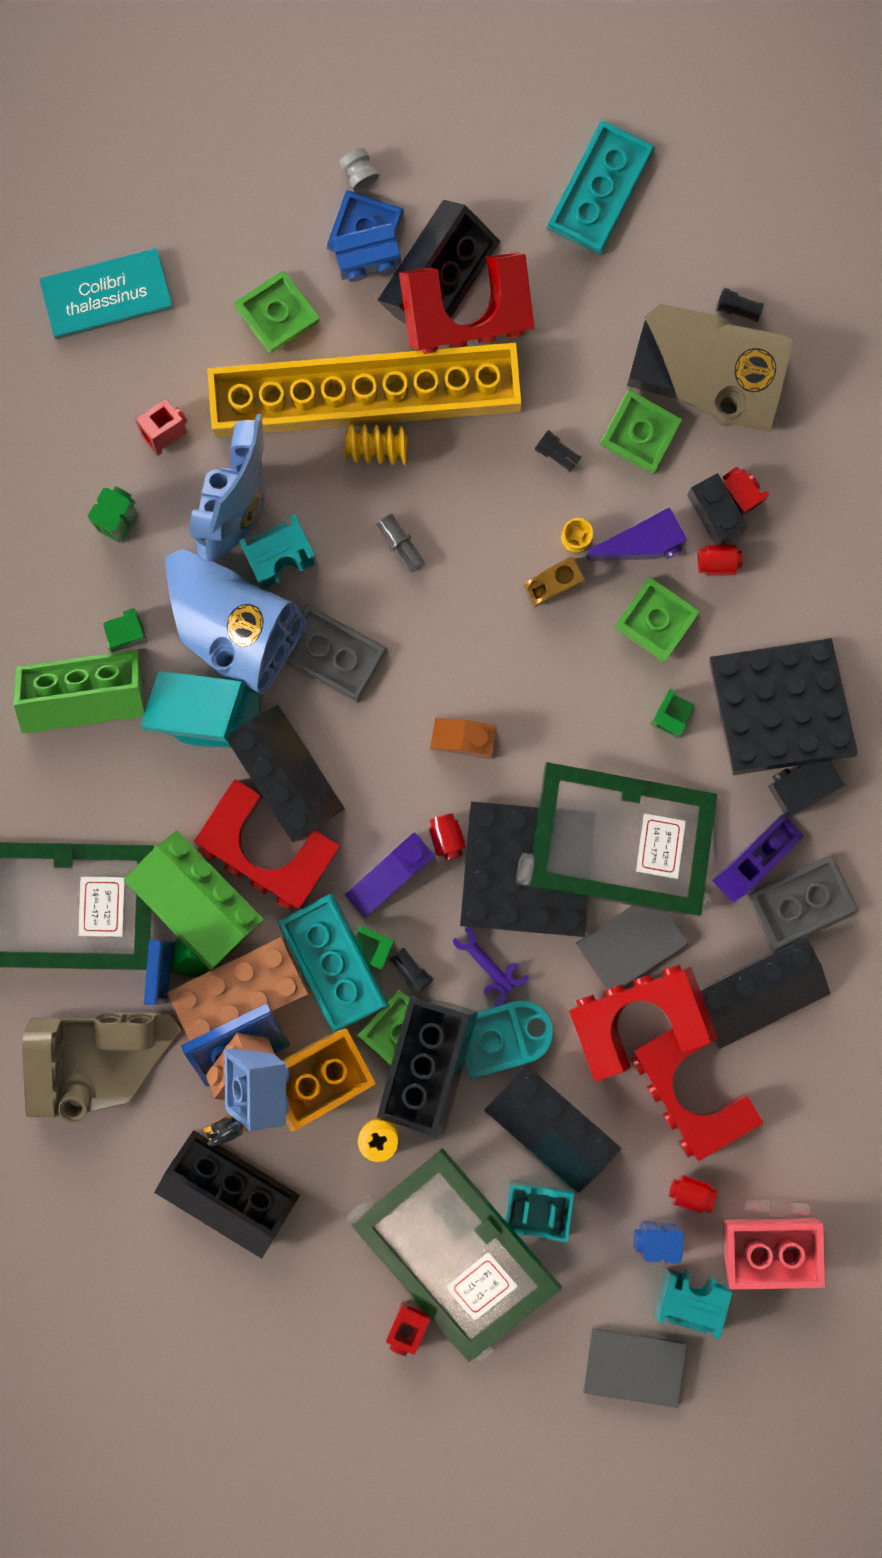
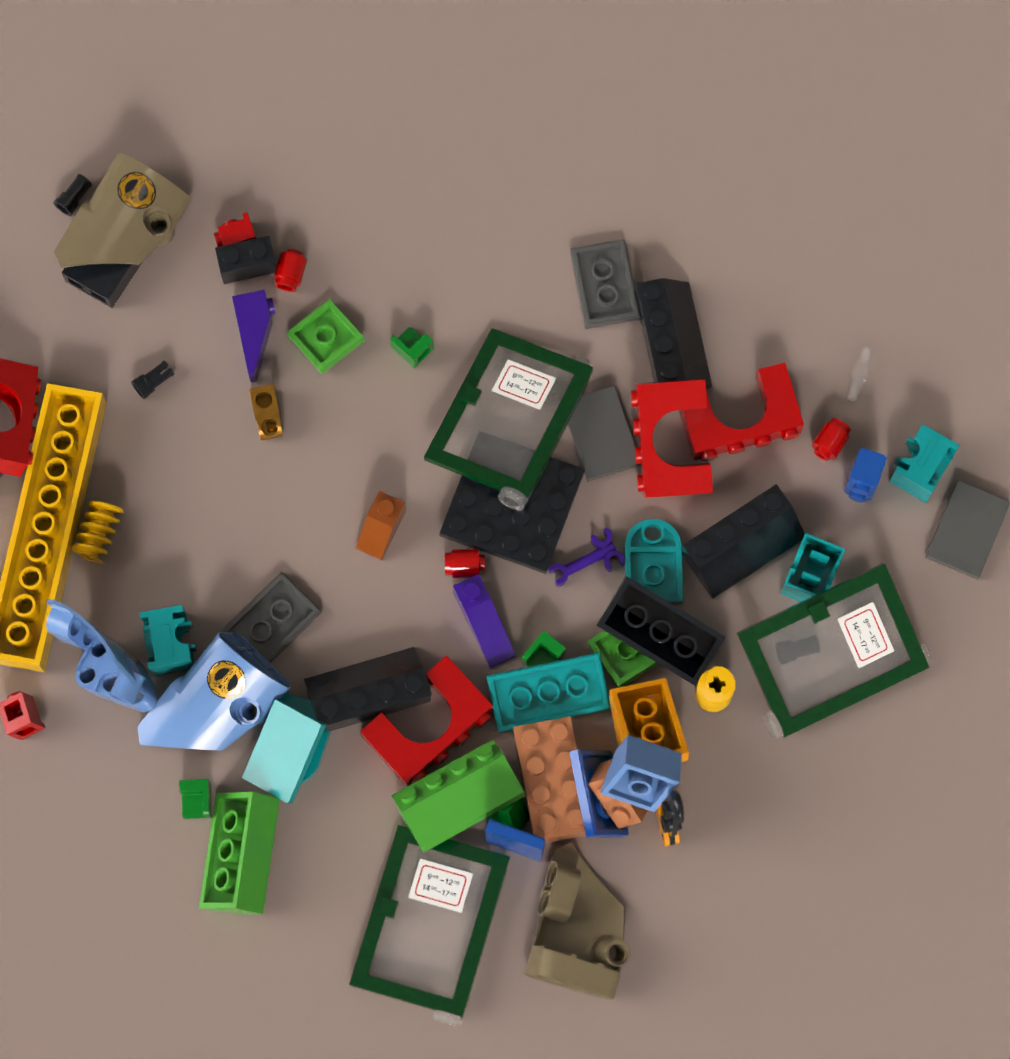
camera: 75 degrees left, 10 degrees down
(113, 513) = (88, 776): green brick -> none
(227, 1194) = (729, 839): black slope -> none
(400, 543) = (191, 535): dark grey axle -> none
(416, 977) = (579, 624): black pin -> none
(417, 1320) = (888, 702): red brick -> none
(577, 530) = (230, 376): yellow wheel -> none
(640, 431) = (157, 306): bright green plate -> none
(758, 859) = (558, 309): dark purple slope -> none
(774, 1253) = (898, 384): coral slope -> none
(782, 706) = (432, 252): black plate -> none
(804, 786) = (505, 252): black brick -> none

